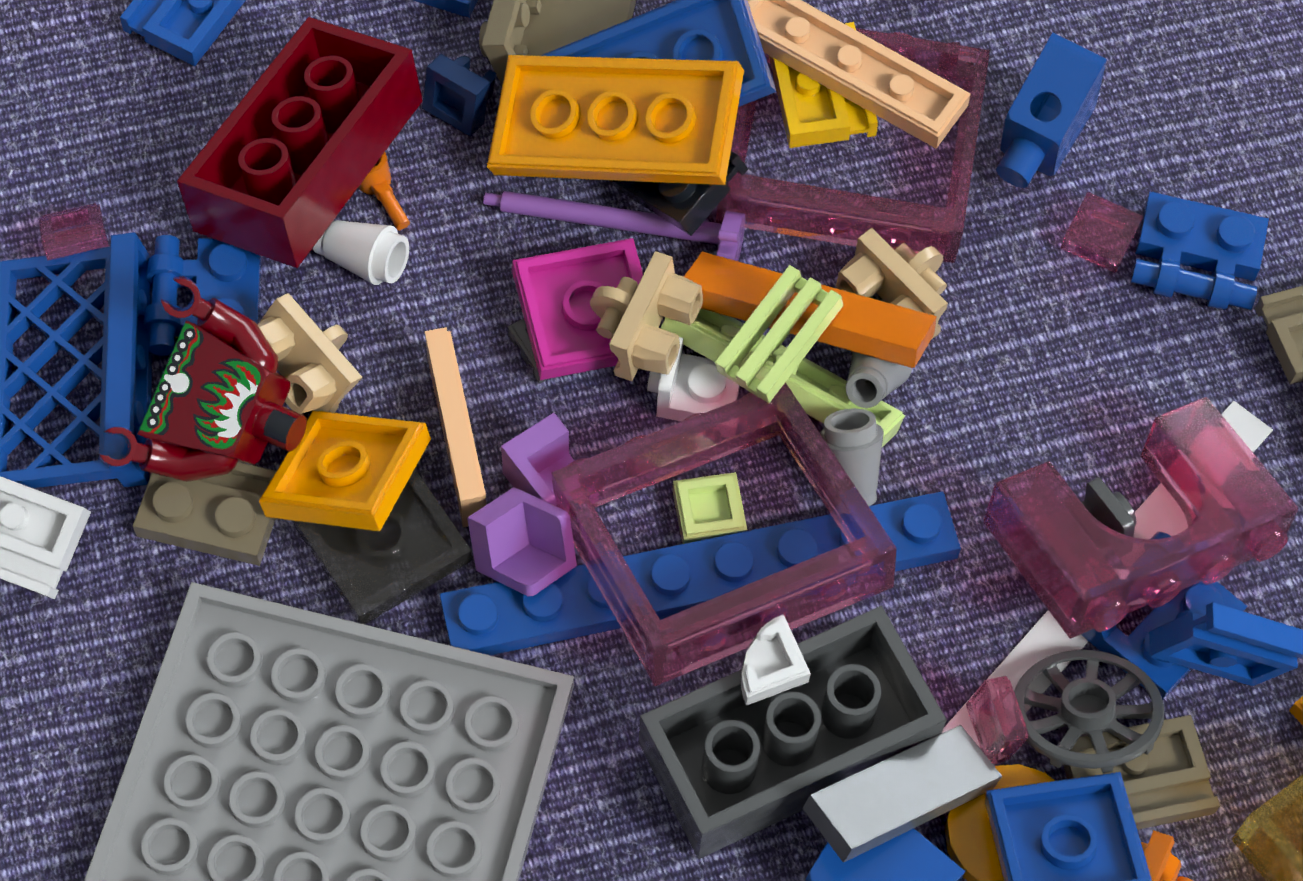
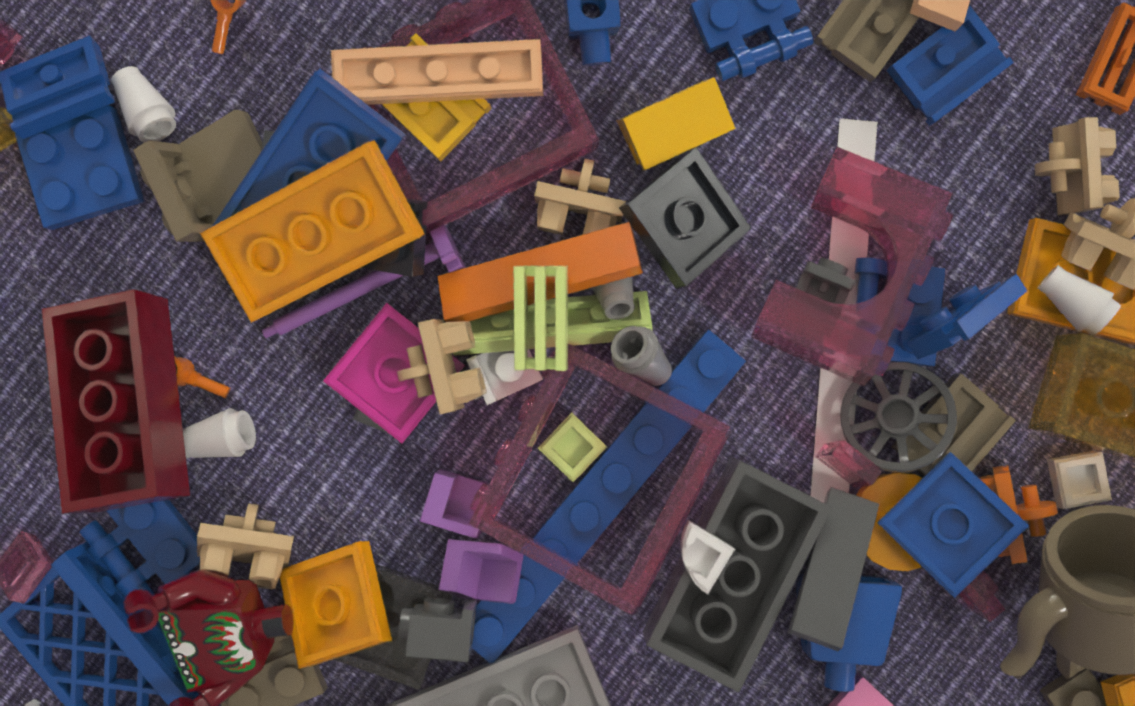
camera: 40 degrees left, 25 degrees up
(438, 557) = (439, 629): none -> dark grey brick
(455, 423) = (376, 517): light nougat tile -> none
(457, 93) = (185, 277): dark blue tile -> none
(997, 364) = (685, 218): none -> plate
(1054, 276) = (676, 124): none -> yellow hinge
(1101, 232) = (678, 56): clear pink tile -> none

